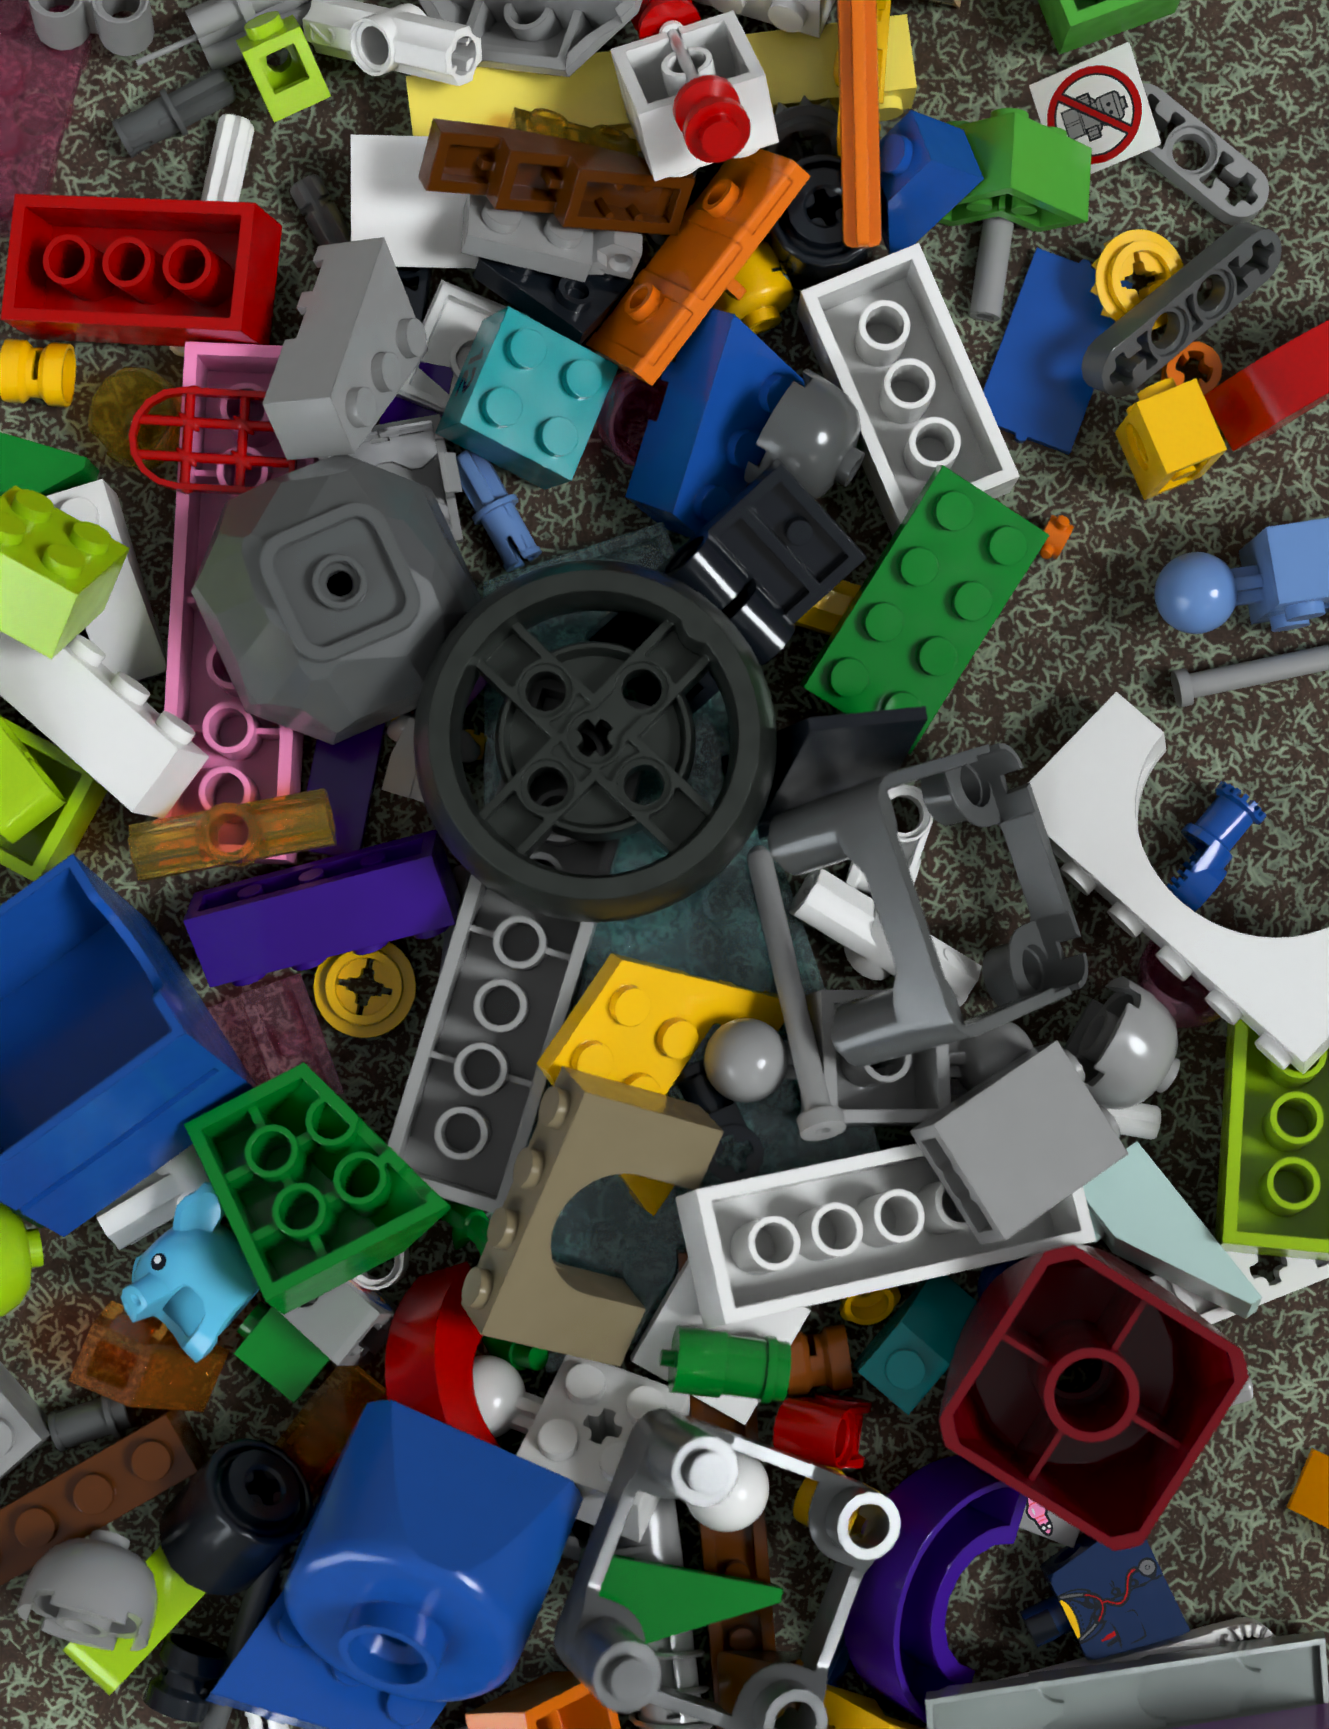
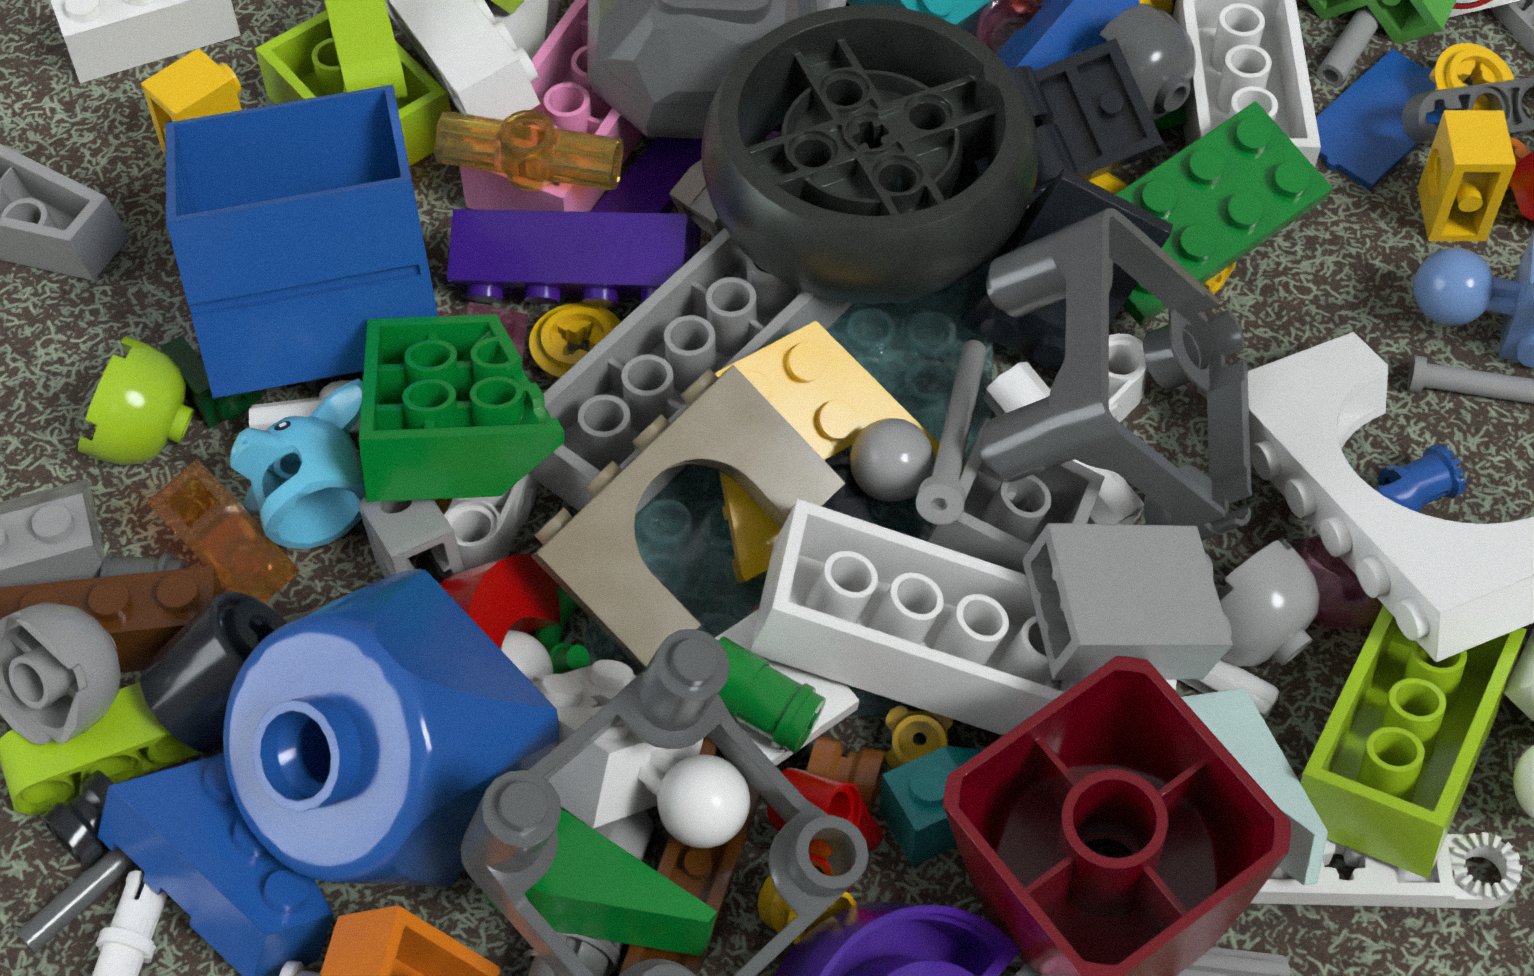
camera: 25 degrees right, 30 degrees down
(279, 1352) = (345, 562): green brick -> none
(1059, 531) = (1336, 231): orange piece -> none

